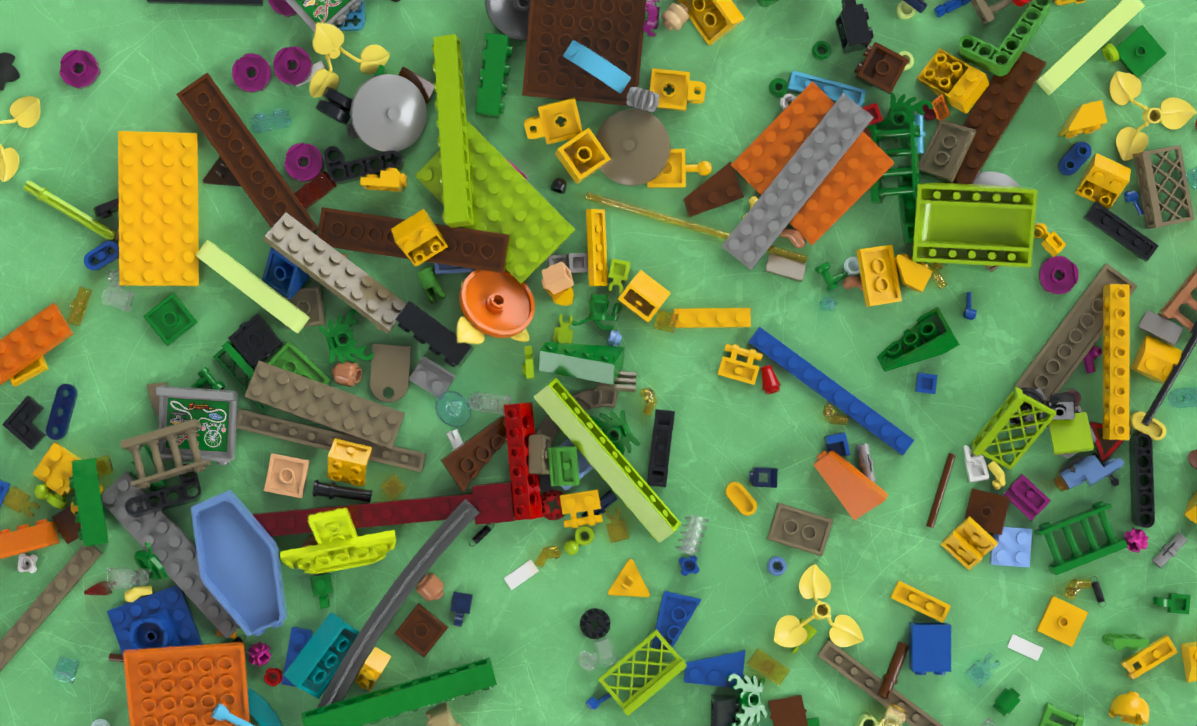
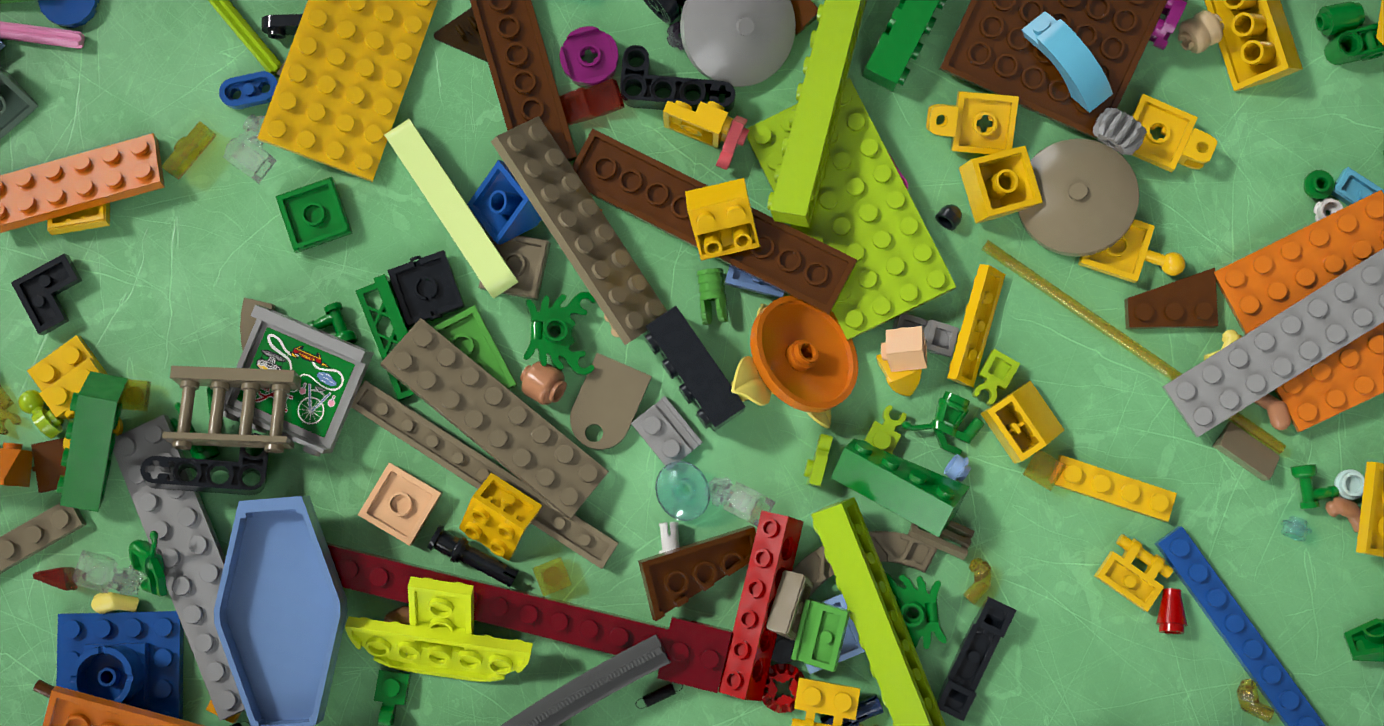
camera: 20 degrees right, 5 degrees down
(67, 405) = (117, 288): clear blue plate -> none
(411, 182) = (736, 136): none -> coral plate

